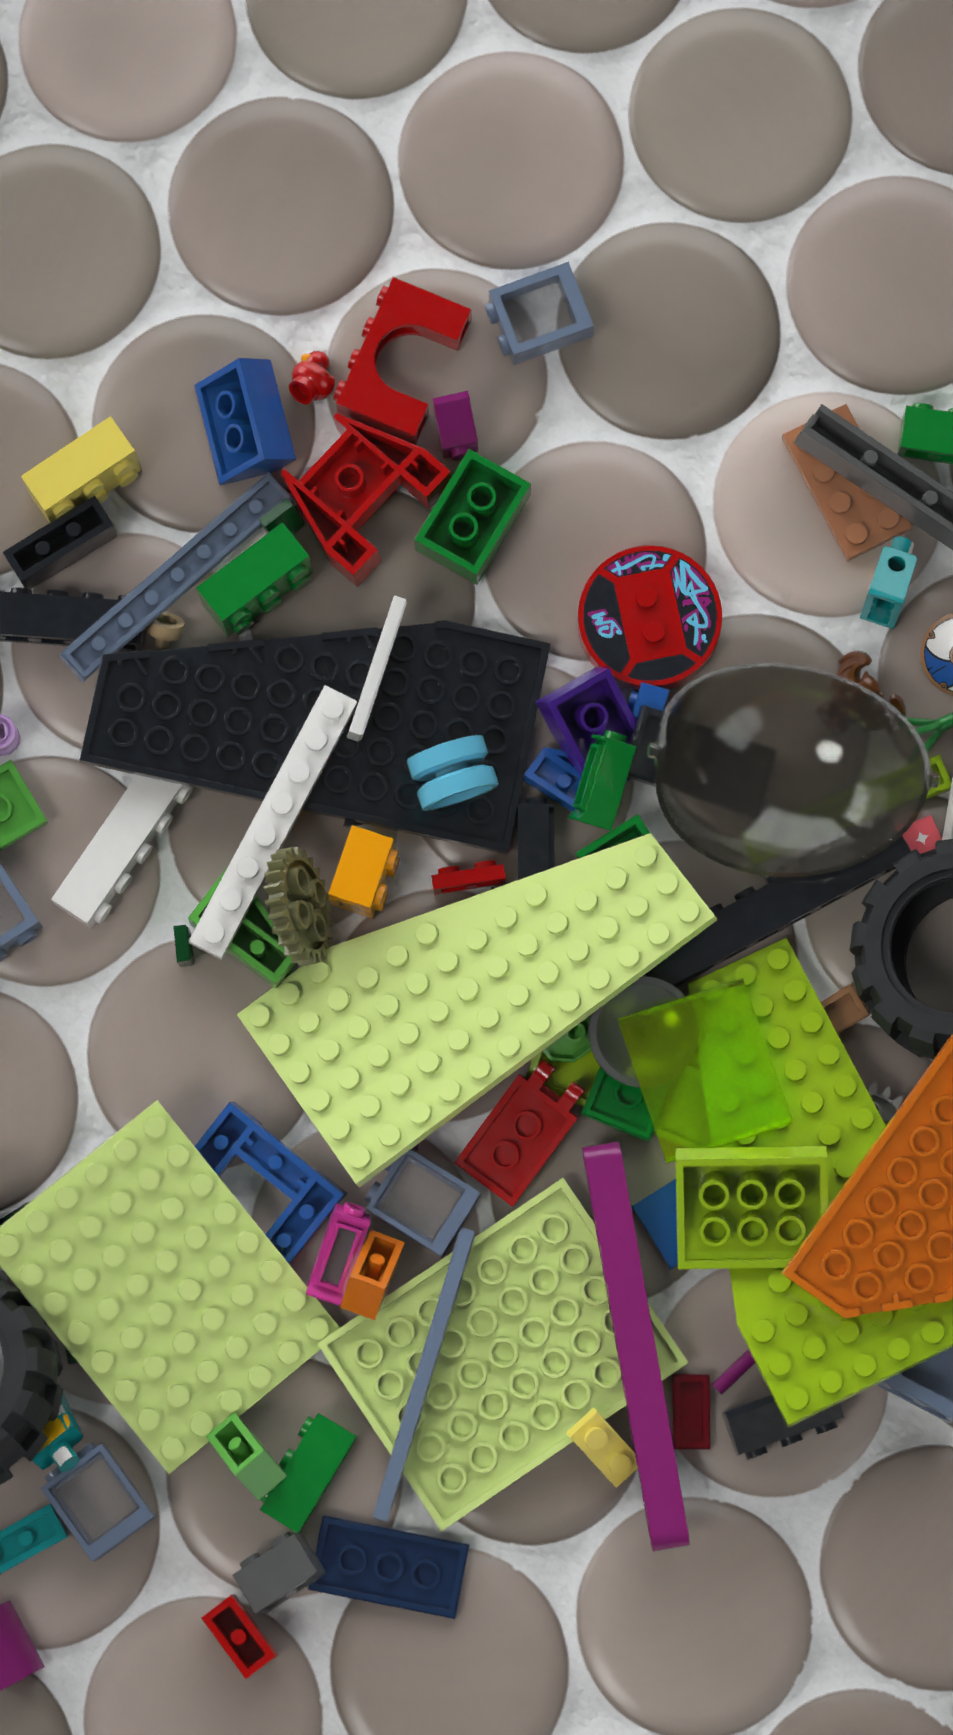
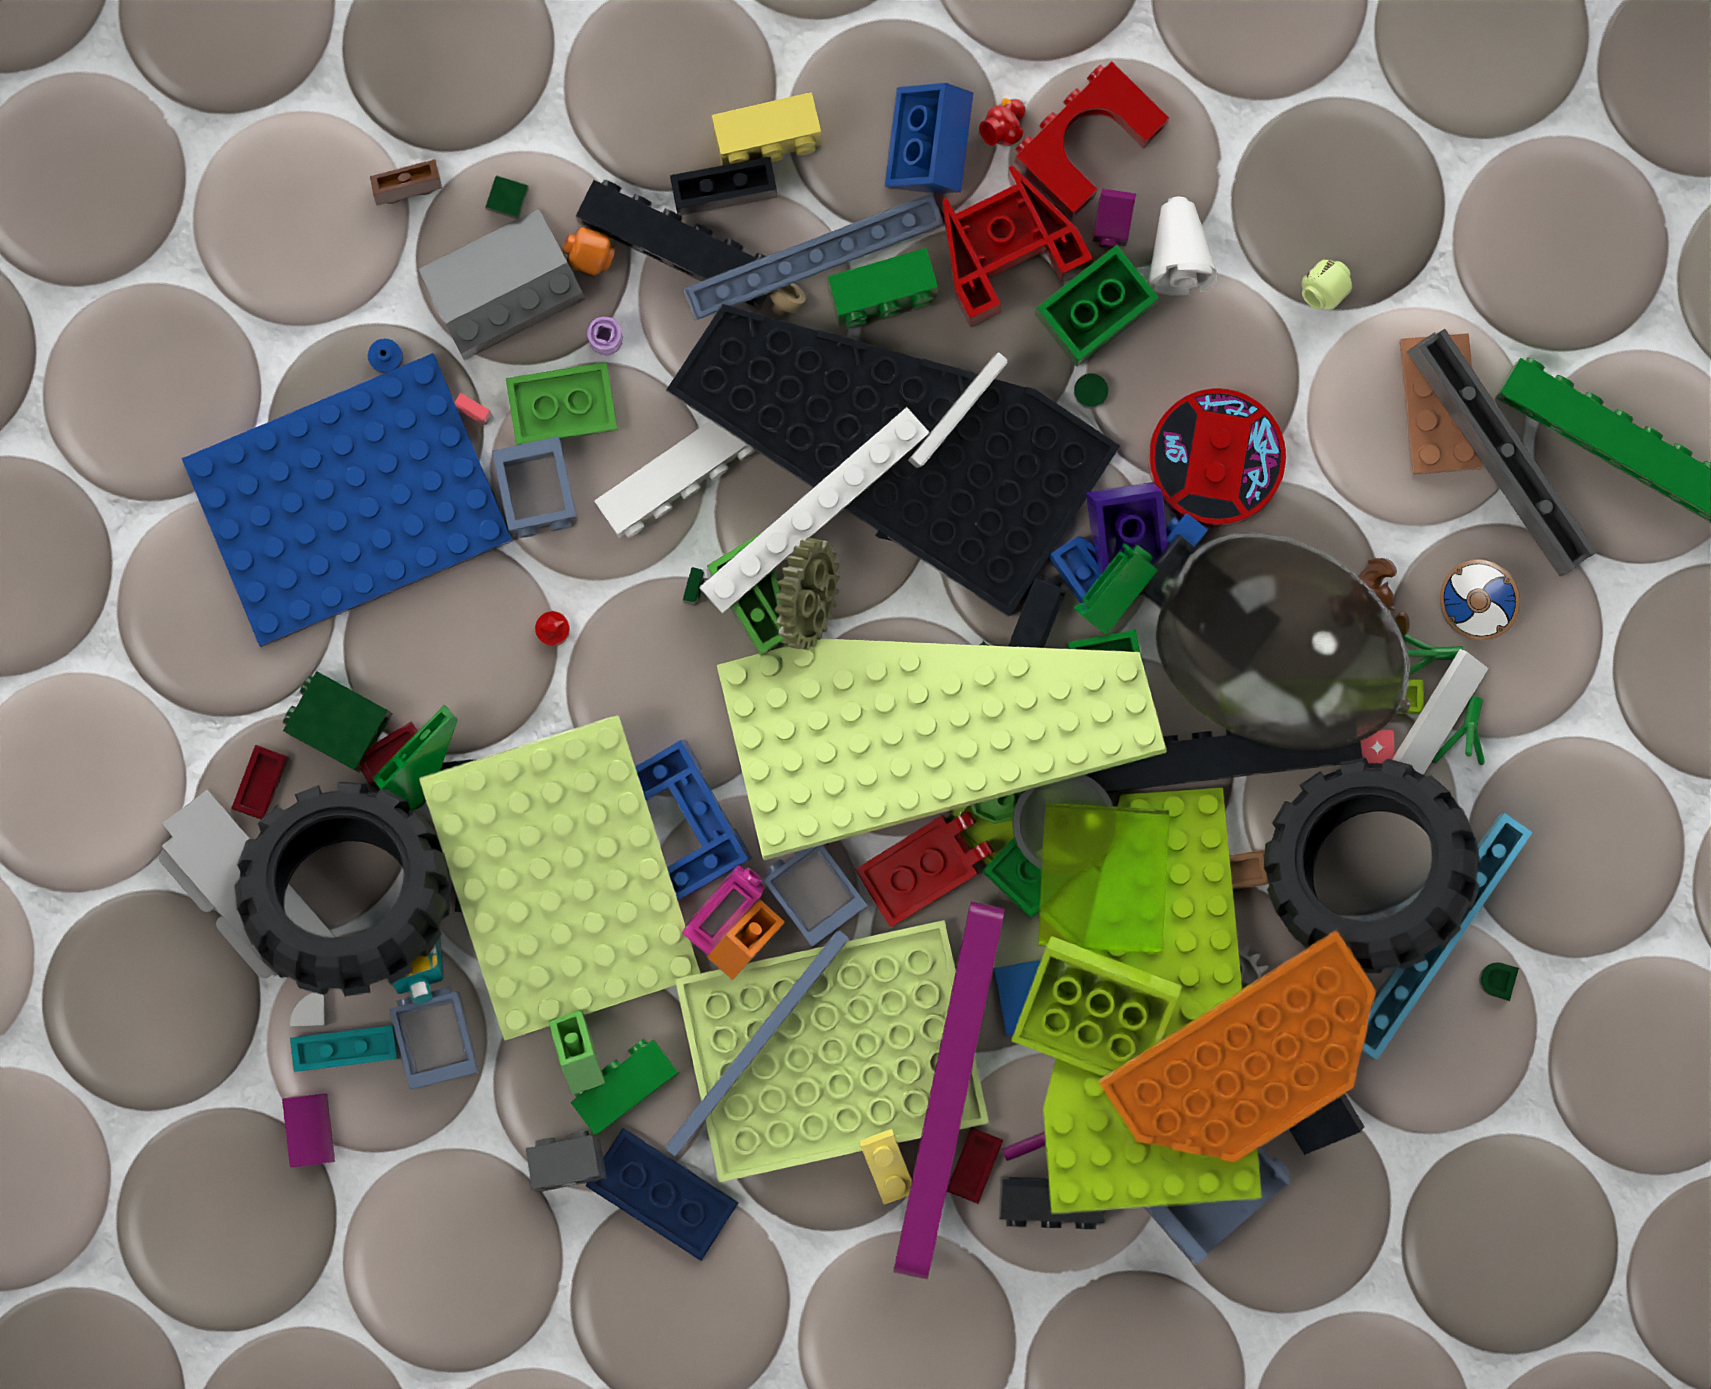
camera: 15 degrees right, 5 degrees up
(58, 1043) = (552, 628): none -> red tile
(239, 1636) = (511, 1203): red brick -> none
(285, 513) = (929, 238): dark green tile -> none
(363, 872) = (875, 585): light orange brick -> none
(452, 772) = (987, 532): medium azure wheel -> none
(483, 875) = (951, 621): red plate -> none
(500, 602) = (1090, 390): none -> dark green tile
(535, 315) = (1225, 146): sand blue window -> none
(535, 433) = (1181, 251): none -> white cone
(689, 410) = (1326, 285): none -> yellowish green head
(890, 583) = (1441, 510): teal torso -> none

